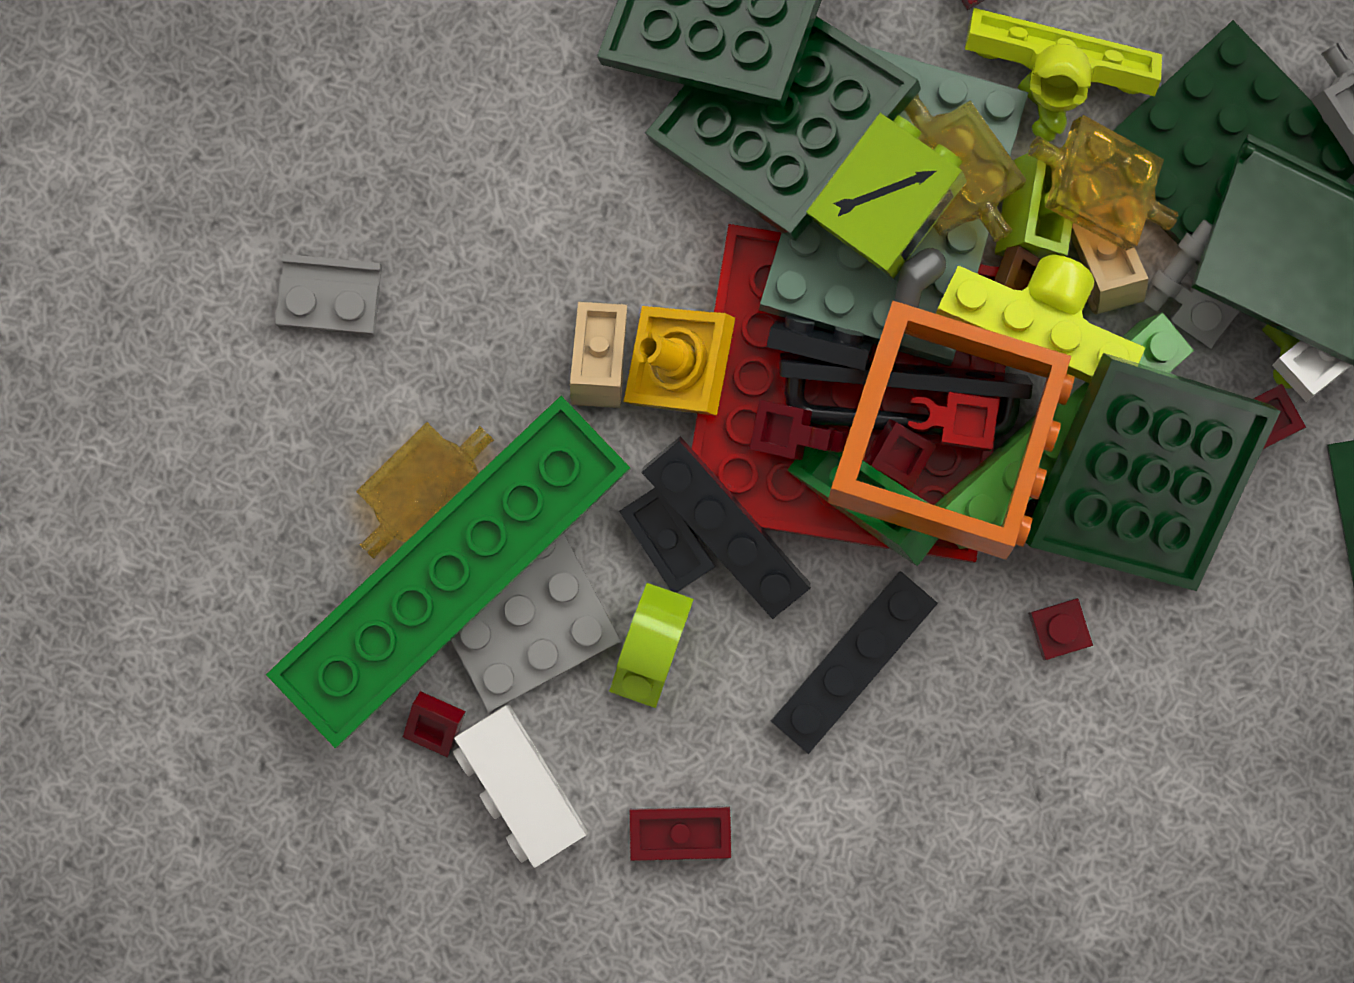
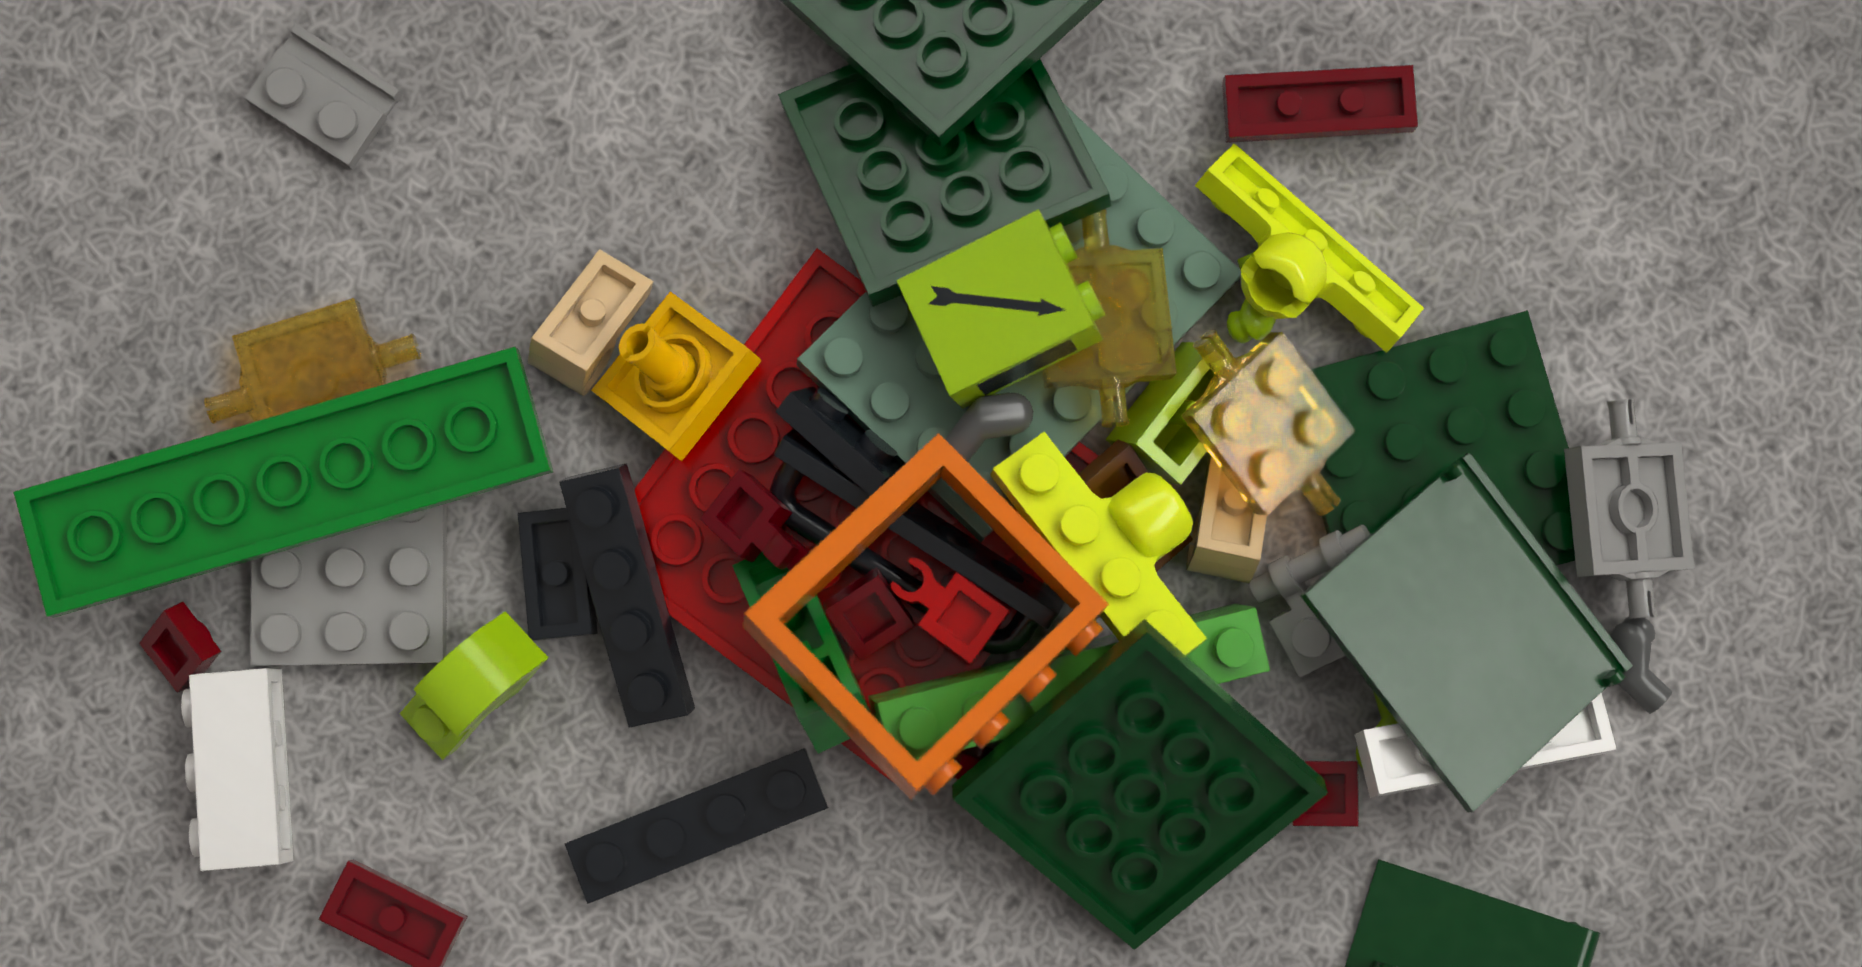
camera: 25 degrees right, 0 degrees up
(1060, 629) = (954, 911): dark red plate -> none

